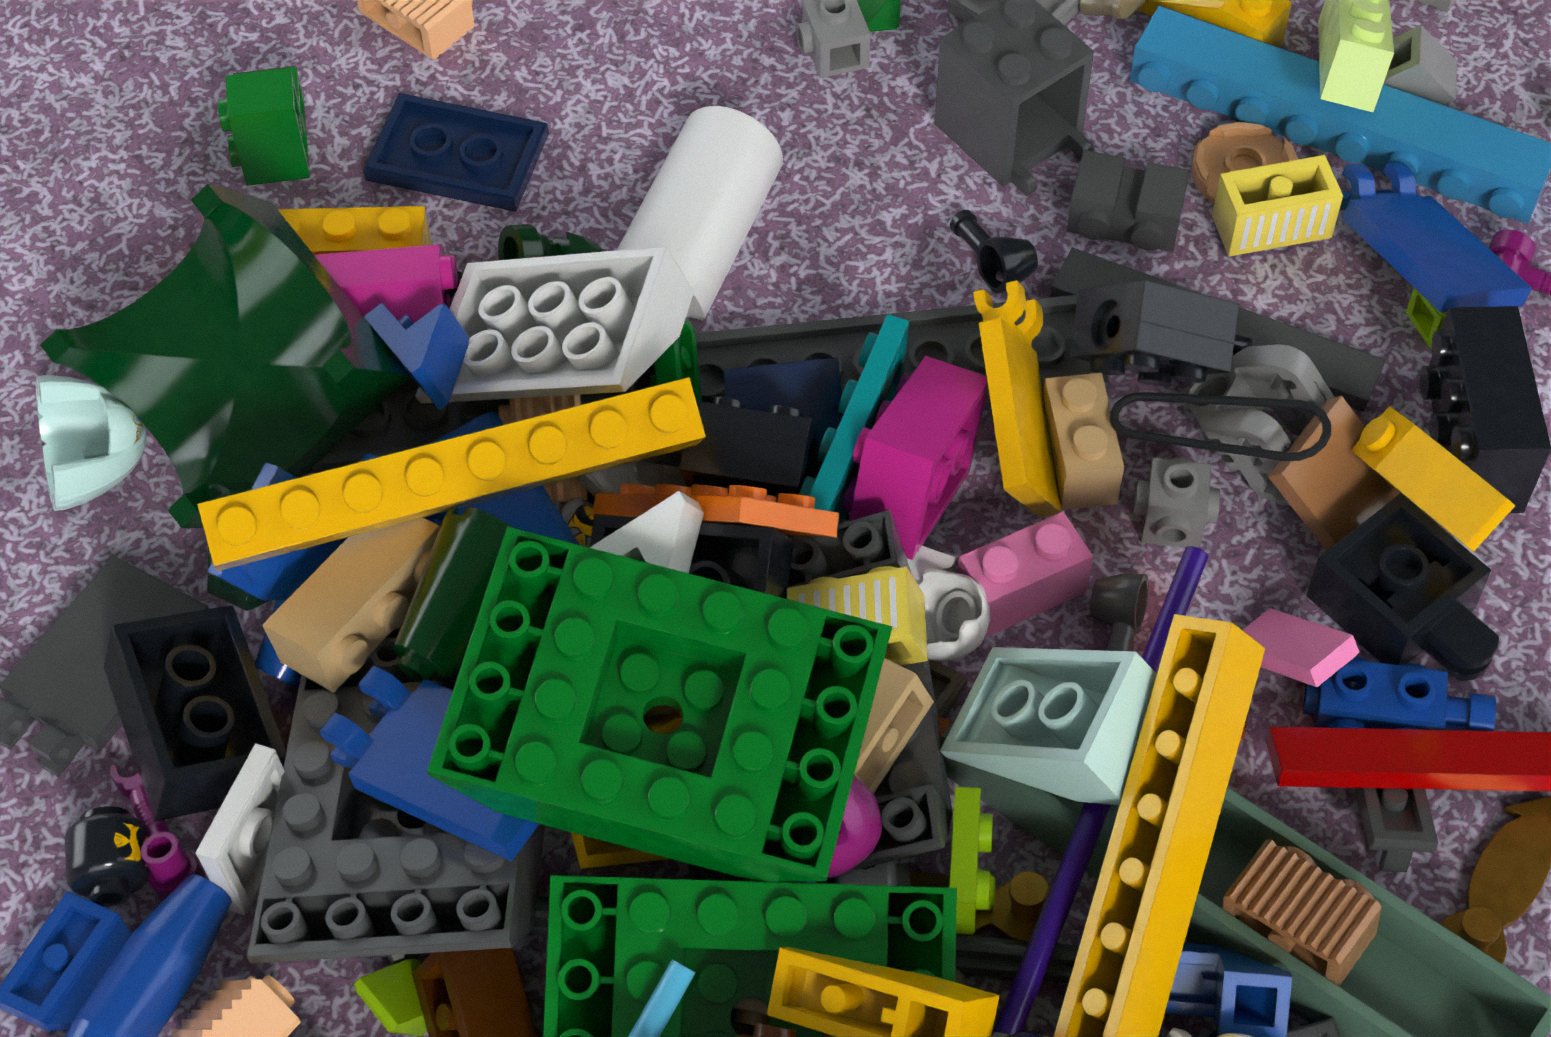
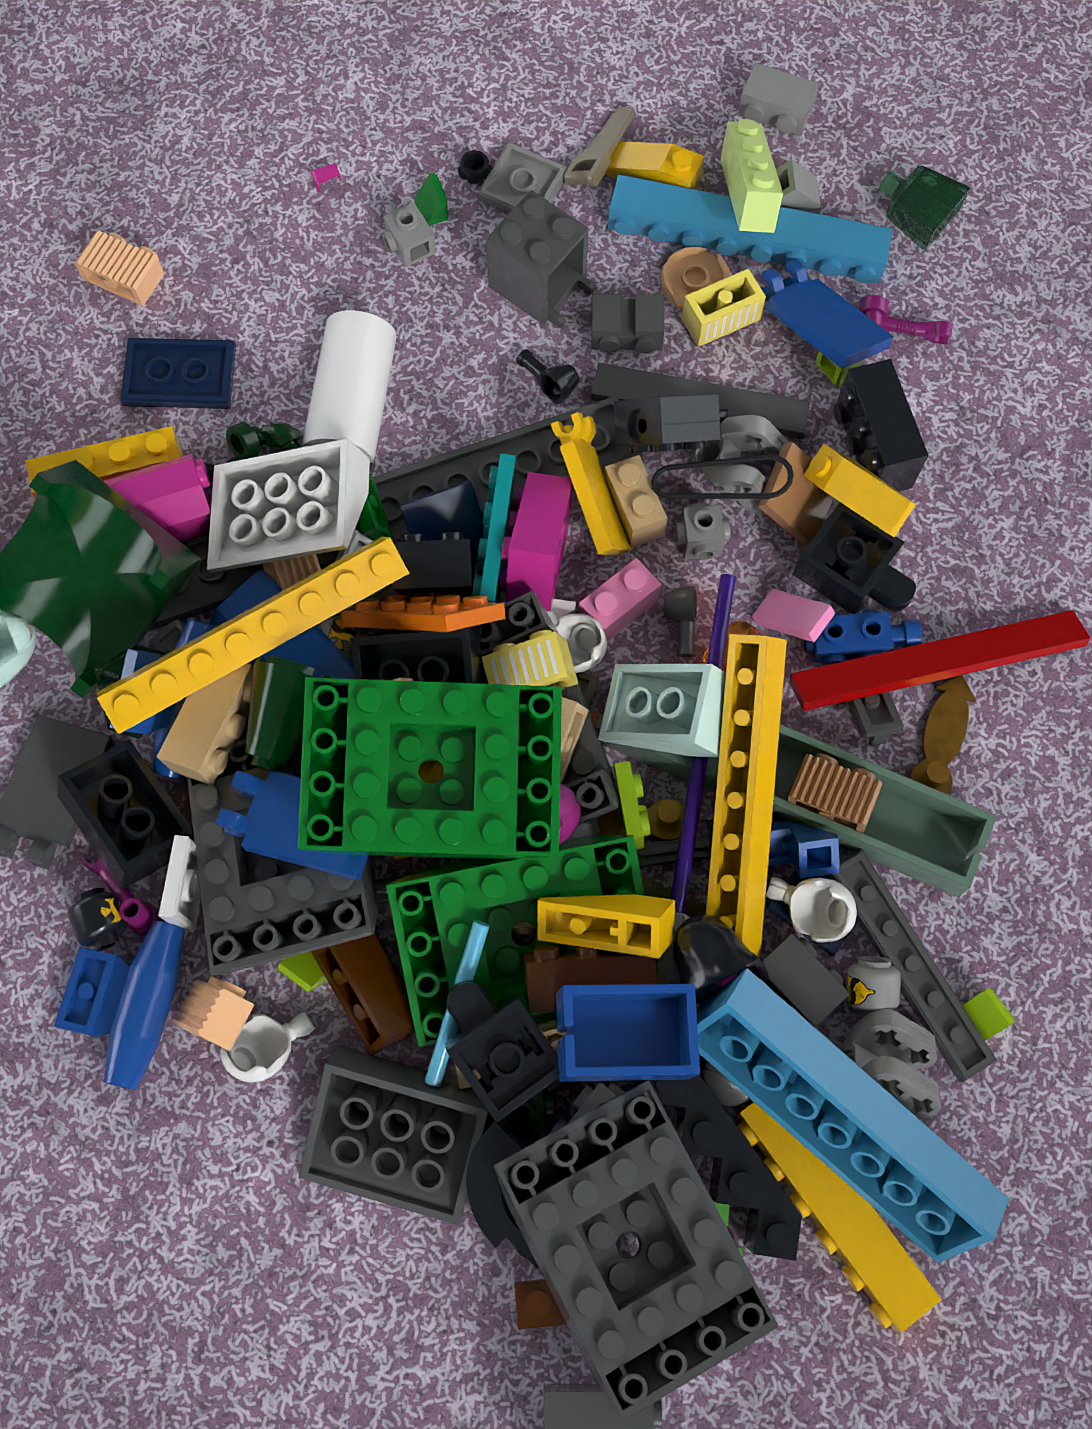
camera: 15 degrees left, 15 degrees up
(267, 125) = (45, 382): green brick -> none
(427, 349) = (207, 540): blue slope -> none
(660, 535) = (399, 652): white slope -> none

